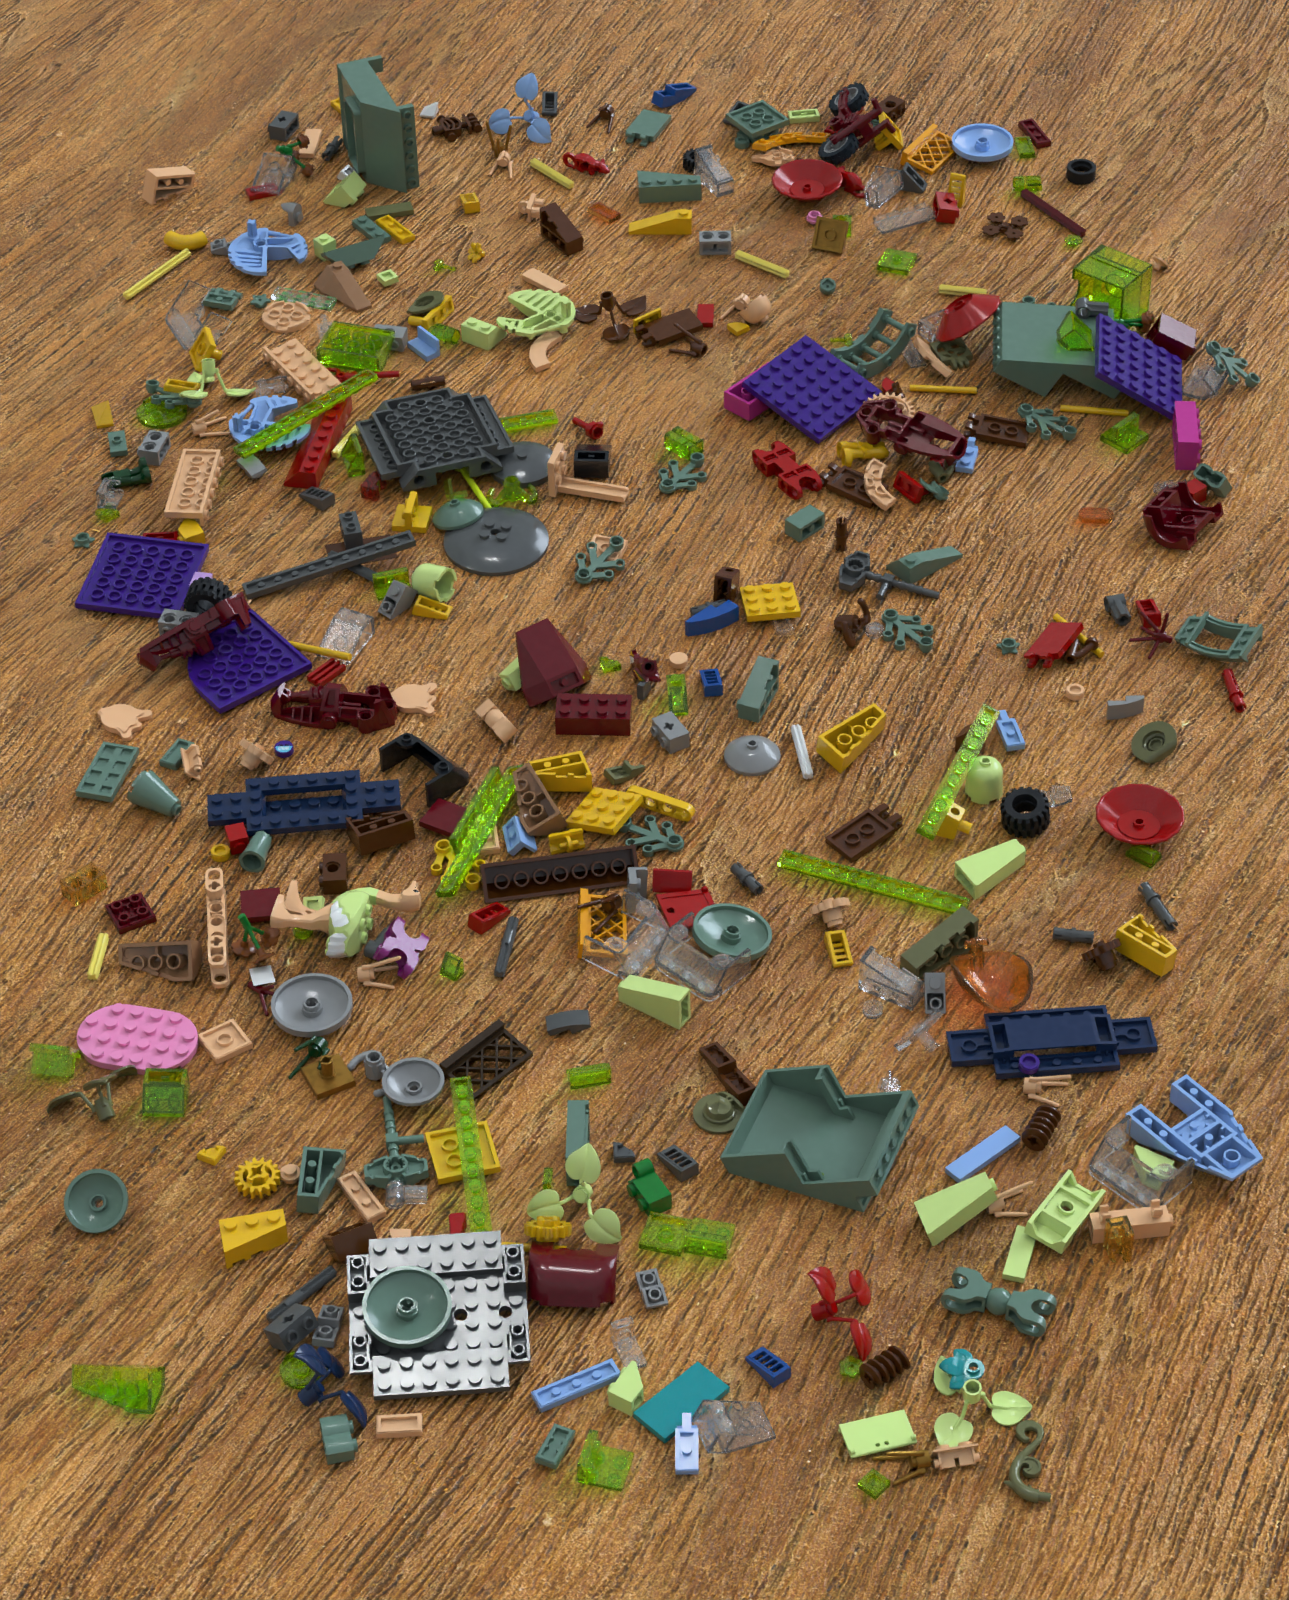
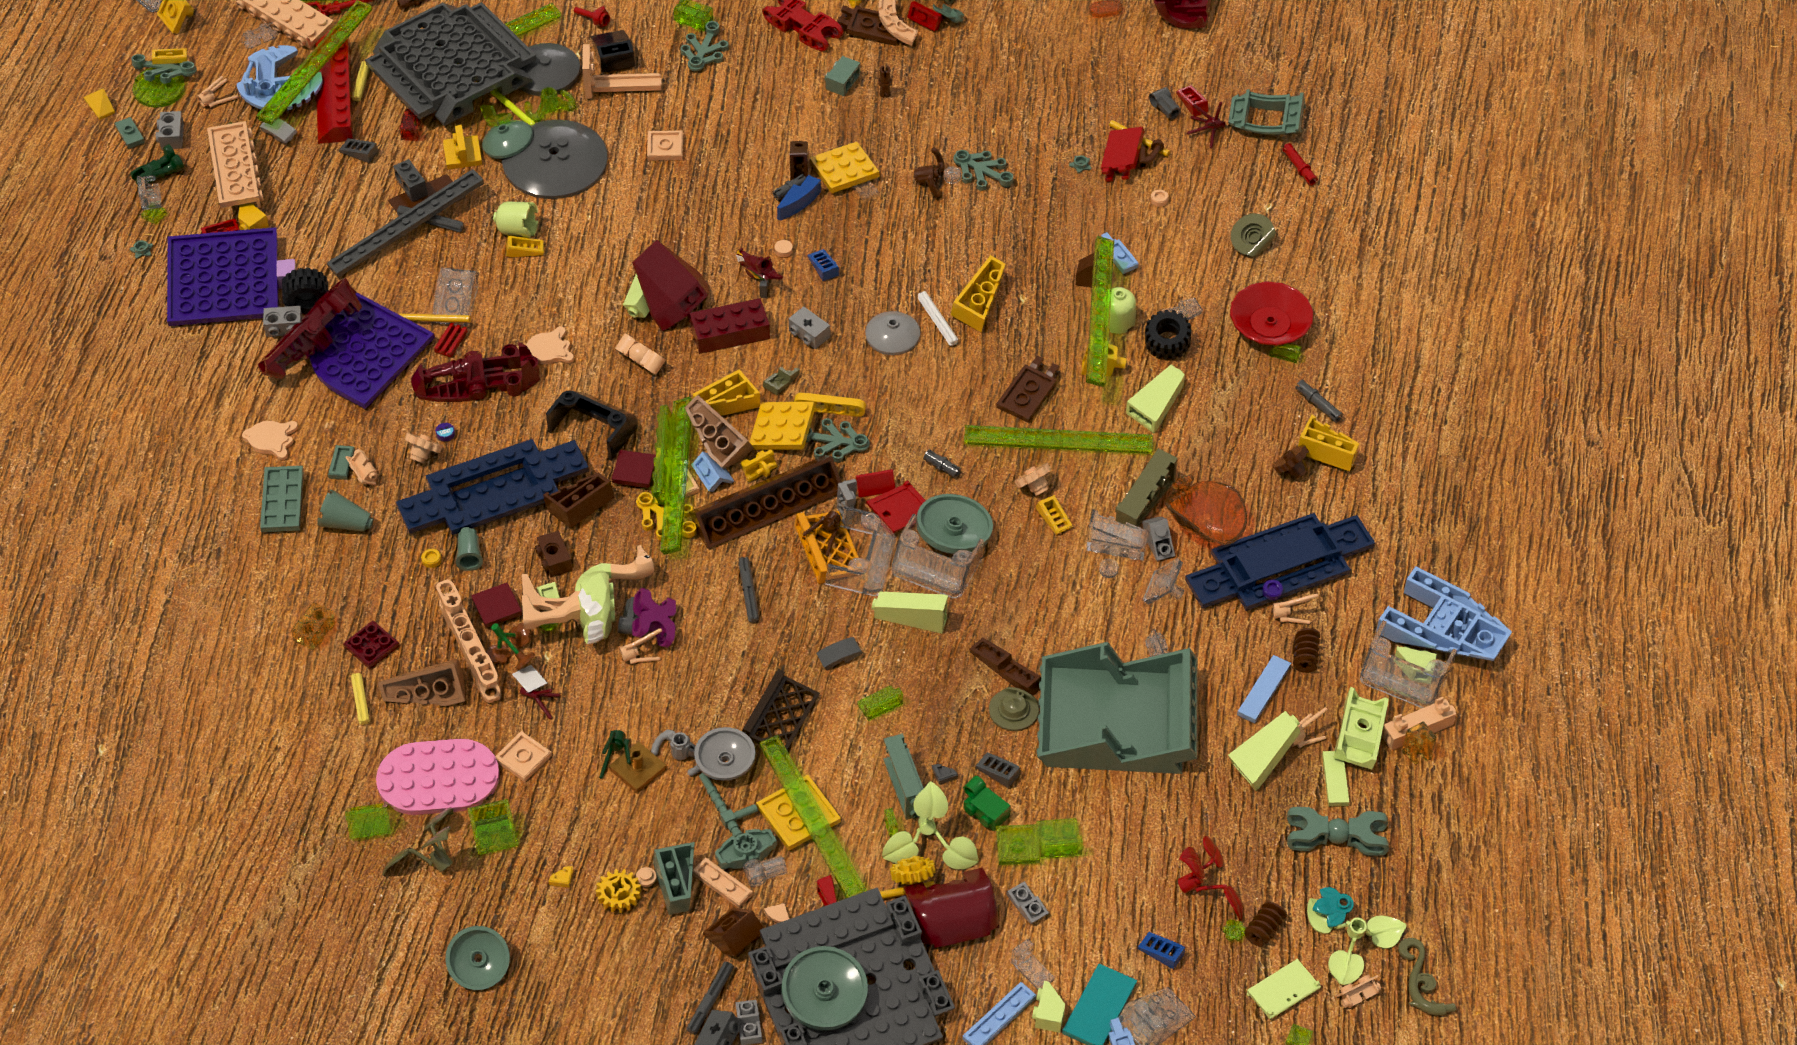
camera: 20 degrees left, 10 degrees up
(207, 376) = (194, 35): yellowish green plant -> none
(236, 837) = (443, 539): red brick -> none
(251, 1234) = (638, 950): yellow wedge -> none
(311, 1005) = (593, 698): light grey dish -> none
(353, 457) = (377, 98): clear neon green tile -> none
(383, 580) = (474, 229): clear neon green panel -> none
(397, 599) = (487, 245): light grey slope -> none
(452, 966) = (707, 623): clear neon green slope -> none
(486, 917) = (716, 564): red slope -> none
(585, 575) = (665, 161): sand green plant -> none
(609, 665) = (719, 269): clear neon green tile -> none
(677, 694) = (798, 286): clear neon green slope -> none
(759, 690) = (875, 264): sand green wedge -> none
(857, 568) = (911, 118): dark grey bar -> none
(917, 1459) = (1328, 1004): pearl gold plant -> none
(923, 563) = (967, 96): sand green wedge -> none
(1073, 935) = (1256, 448): dark grey pin -> none
(1122, 709) = (1213, 205): light grey slope -> none

